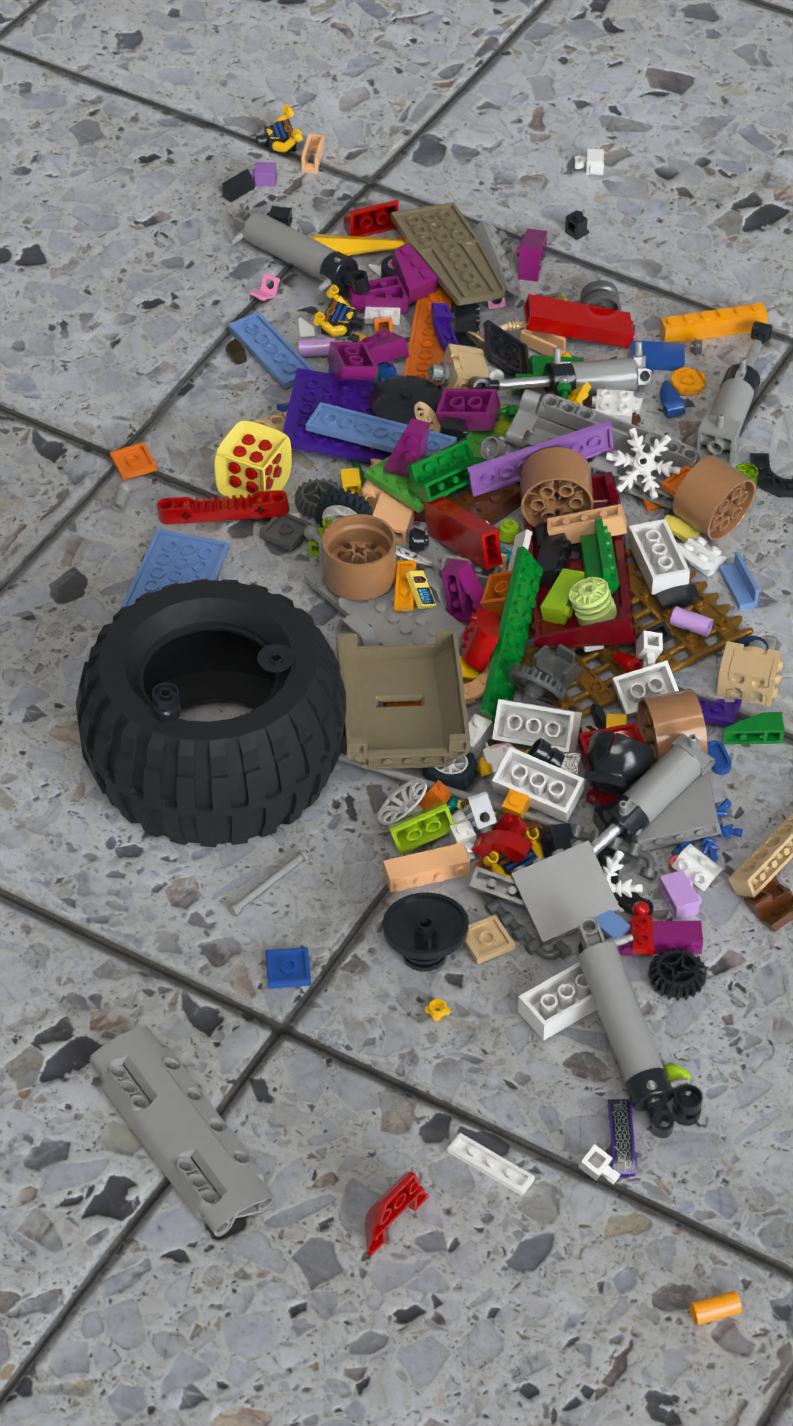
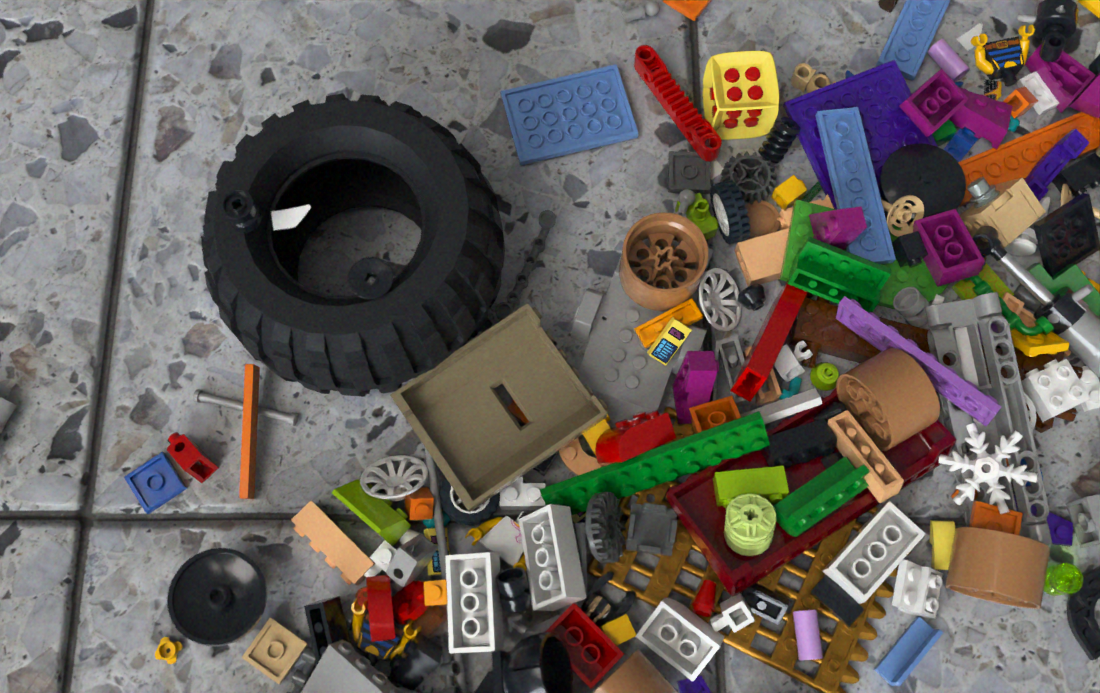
camera: 60 degrees right, 25 degrees up
(186, 689) = (288, 218): none -> white sticker
(286, 926) = (190, 457): none -> red torso
(295, 879) = (249, 432): none -> orange tile
(307, 461) = (779, 140): none -> black piece

